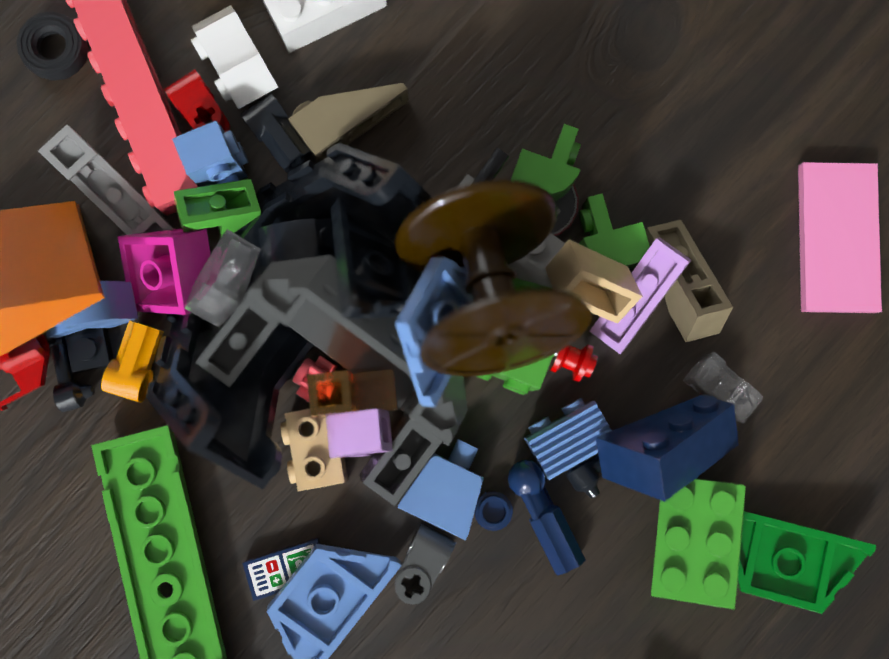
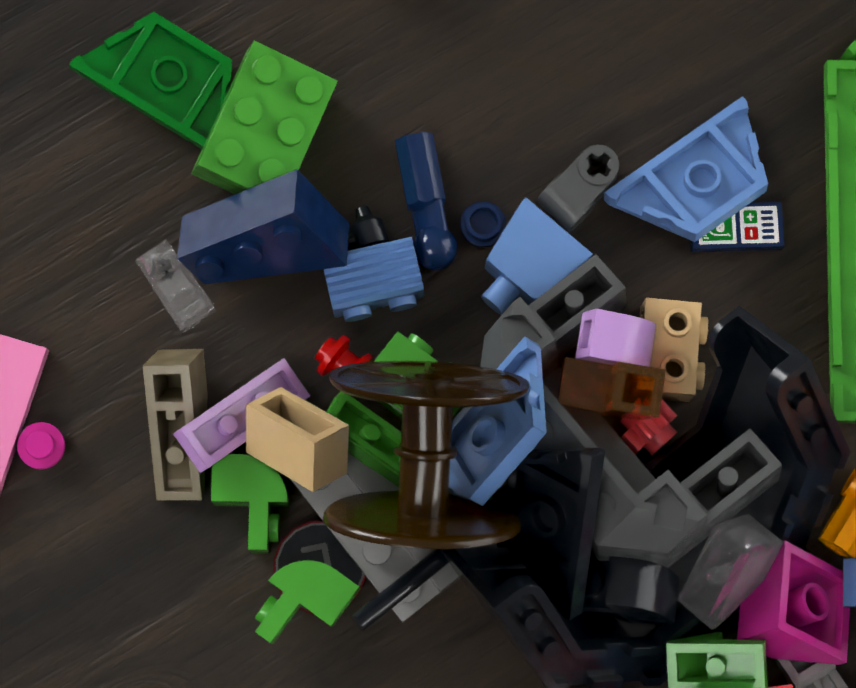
camera: 165 degrees left, 5 degrees down
(783, 234) = (41, 445): none -> dark pink plate

